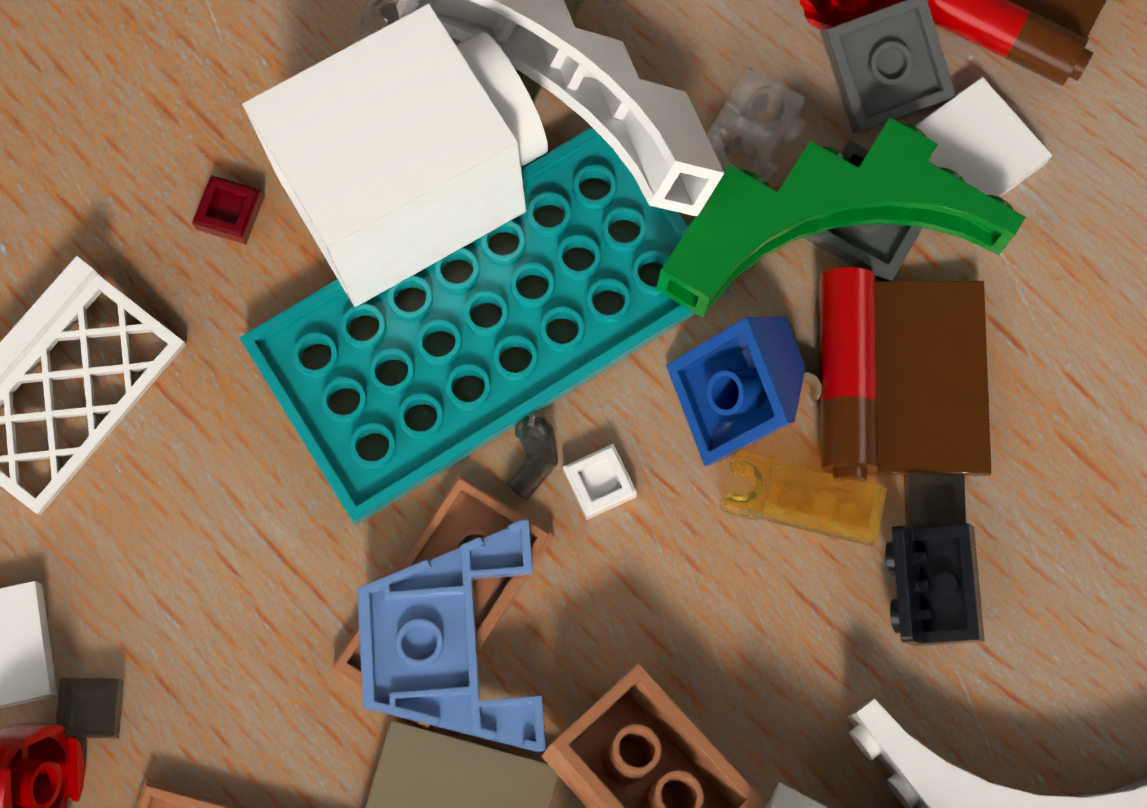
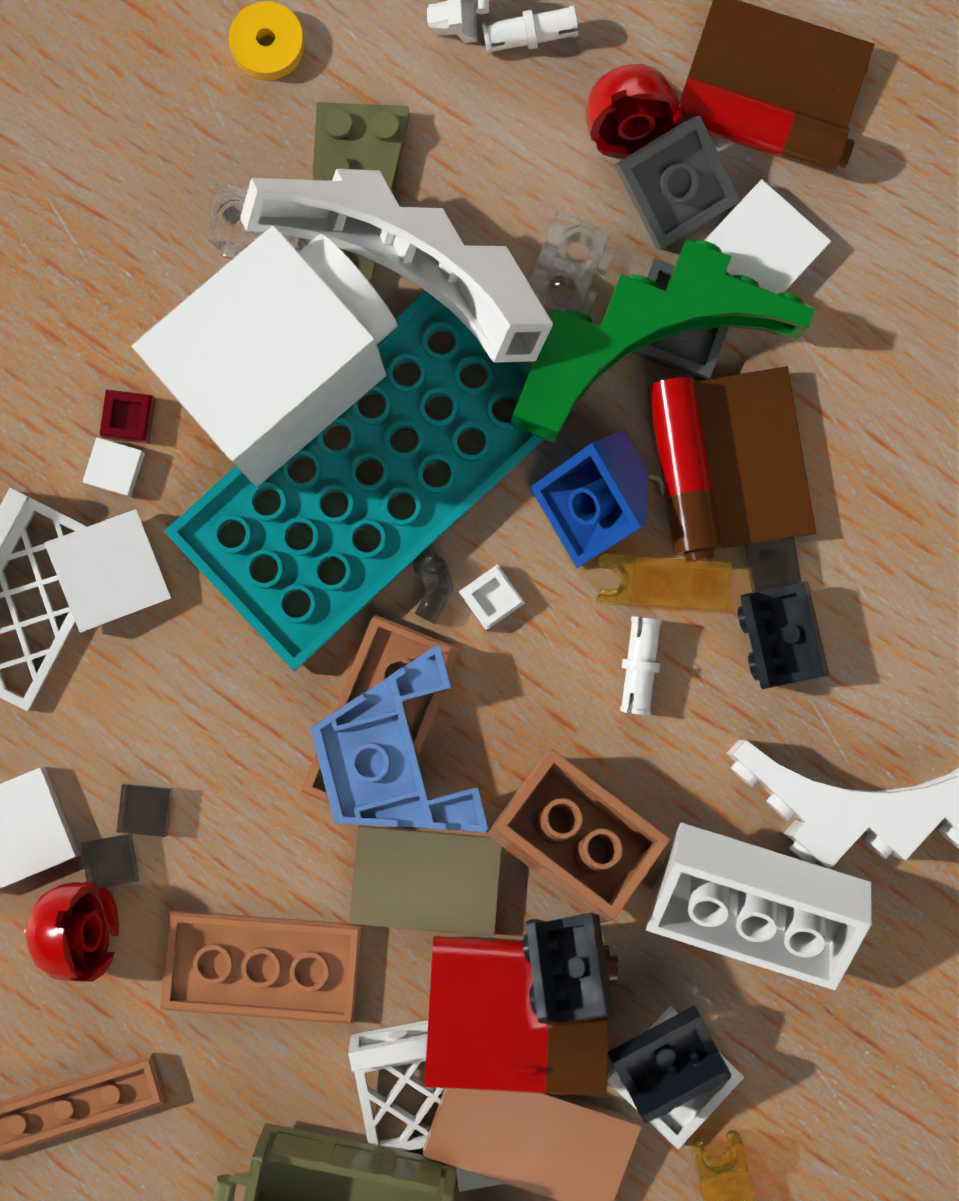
camera: 10 degrees left, 10 degrees up
(144, 654) = (144, 810): none -> clear smoke tile
(166, 371) = (107, 570): none -> white tile
(199, 261) = (113, 467): none -> white tile
(761, 590) = (641, 665): none -> white pin

